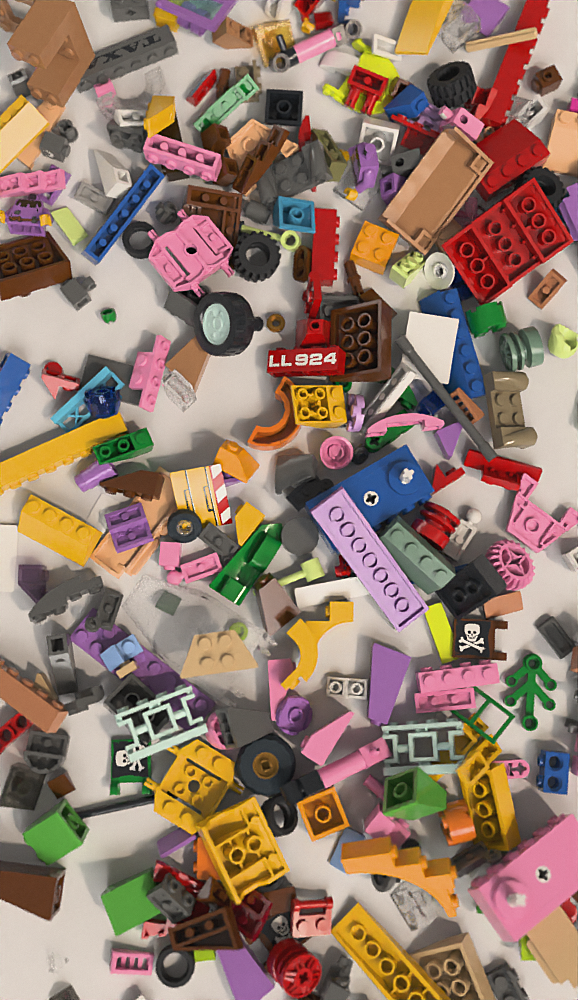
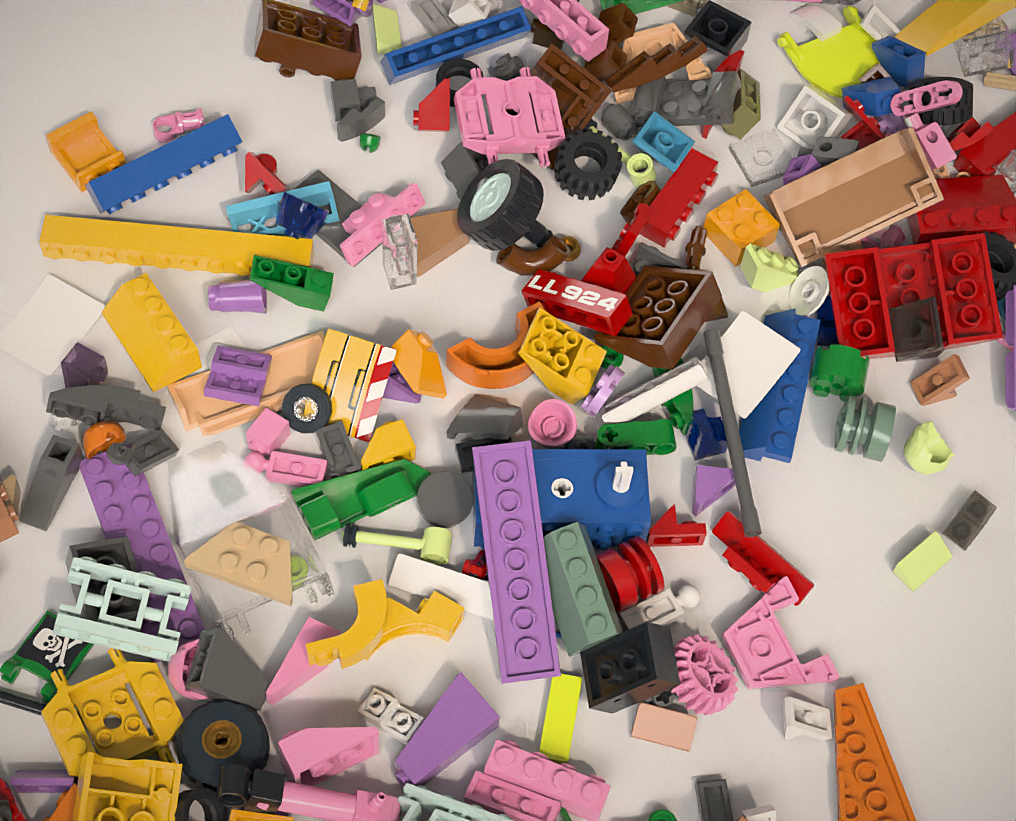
camera: 25 degrees right, 20 degrees down
(73, 616) = (101, 436): none -> orange hair
(84, 699) = (44, 536): dark grey slope -> none
(93, 307) = (360, 122): none -> dark grey slope
(121, 652) = (130, 509): light blue slope -> none
(126, 668) = (126, 526): tan plate -> none
(137, 271) = (434, 110): none -> slope
(139, 483) = (281, 331): reddish brown slope -> none
(263, 343) = (527, 262): none -> reddish brown cylinder
(274, 604) = (361, 553): slope -> none
(293, 715) = (299, 704): medium lavender tile -> none
(364, 167) = (779, 133): medium lavender torso -> none
(366, 83) = (836, 52): red brick -> none
(408, 65) = (900, 60): none -> blue slope
(427, 423) = (660, 426): bright pink slope -> none
(451, 86) = (936, 101): none -> bright pink beam
(472, 408) = (758, 456): nougat slope -> none
(477, 639) = (604, 749): flag -> none
(506, 409) = (806, 490): dark tan piece -> none
(521, 265) = (916, 330): none -> clear smoke slope

